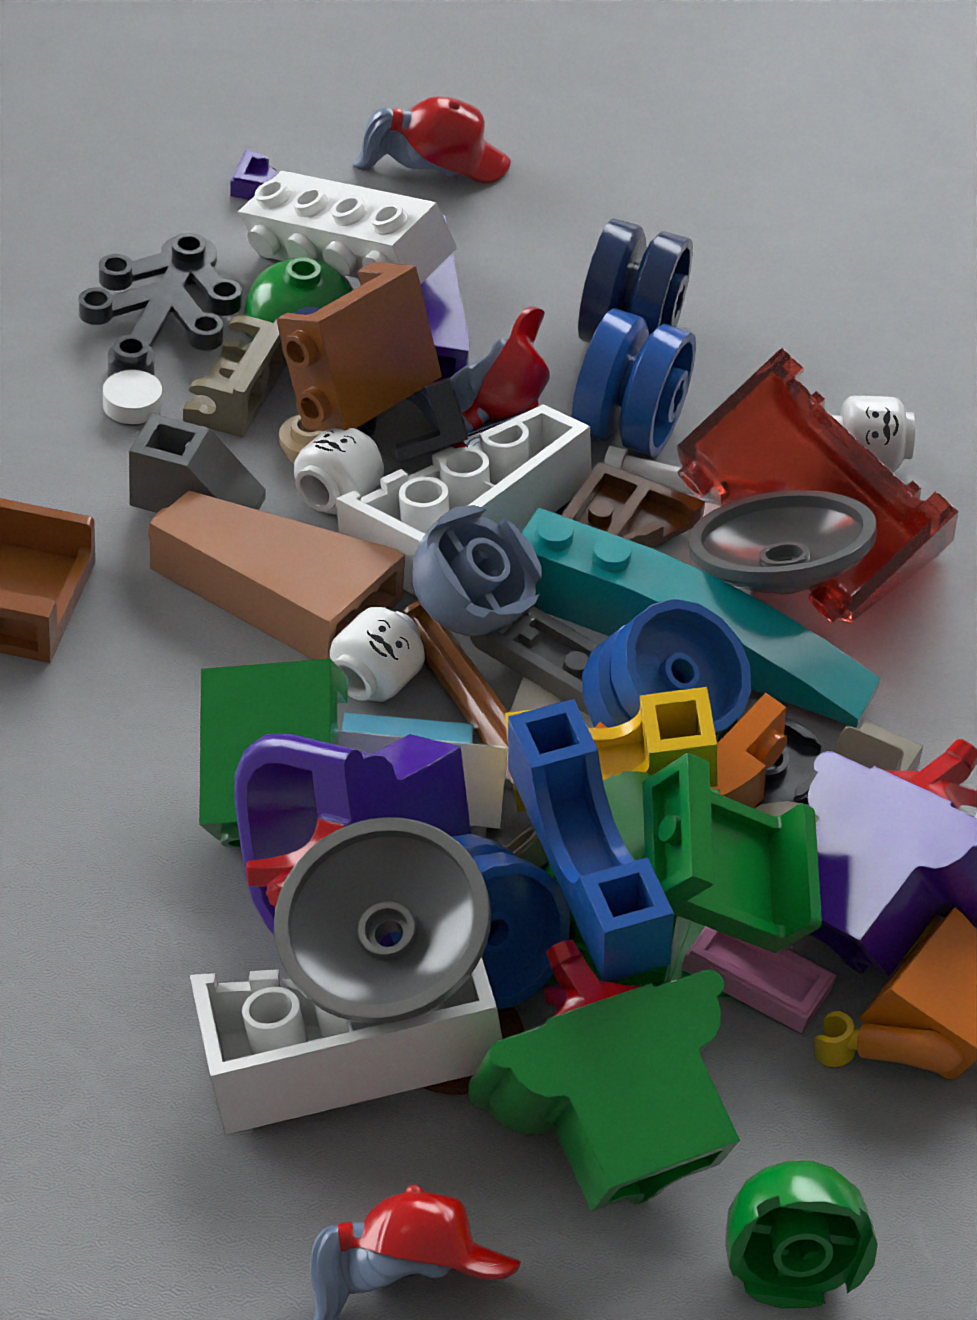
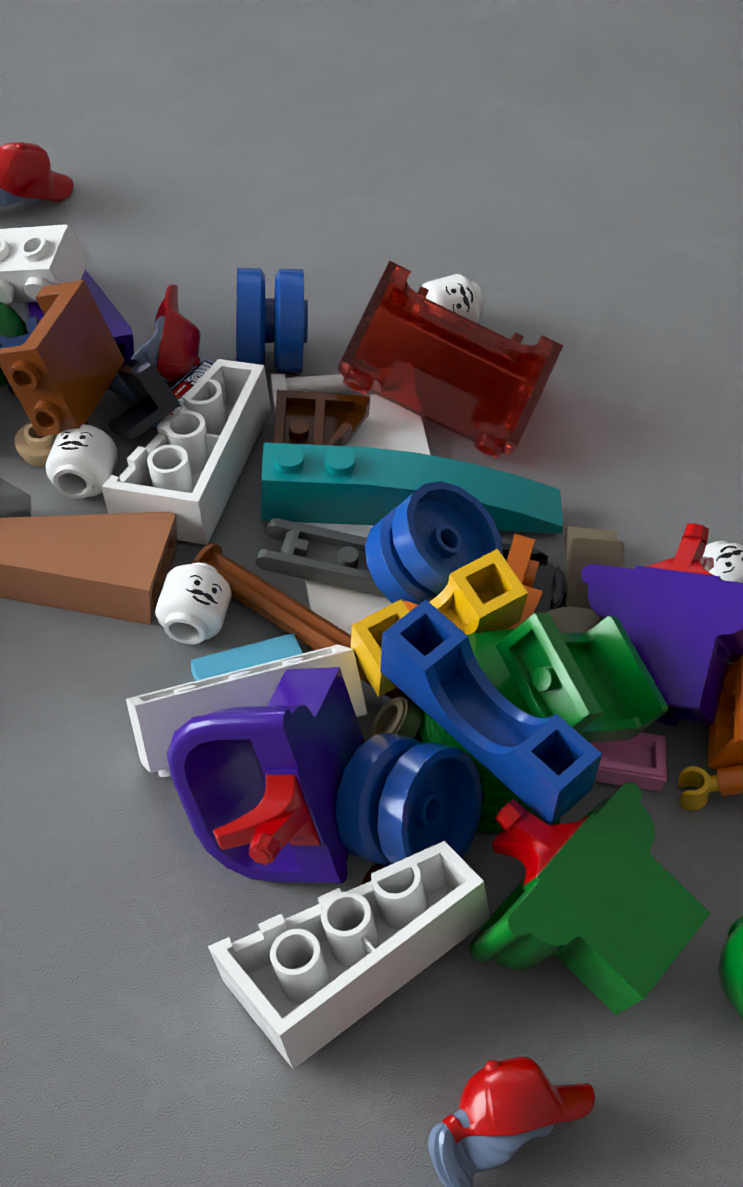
camera: 25 degrees left, 5 degrees up
(255, 701) = (147, 701): green panel -> none
(373, 883) = (358, 802): dark grey dish -> none
(475, 572) = (246, 512): sand blue cylinder -> none
(635, 277) = (228, 248): dark blue wheel -> none
(783, 540) = (449, 407): dark grey dish -> none

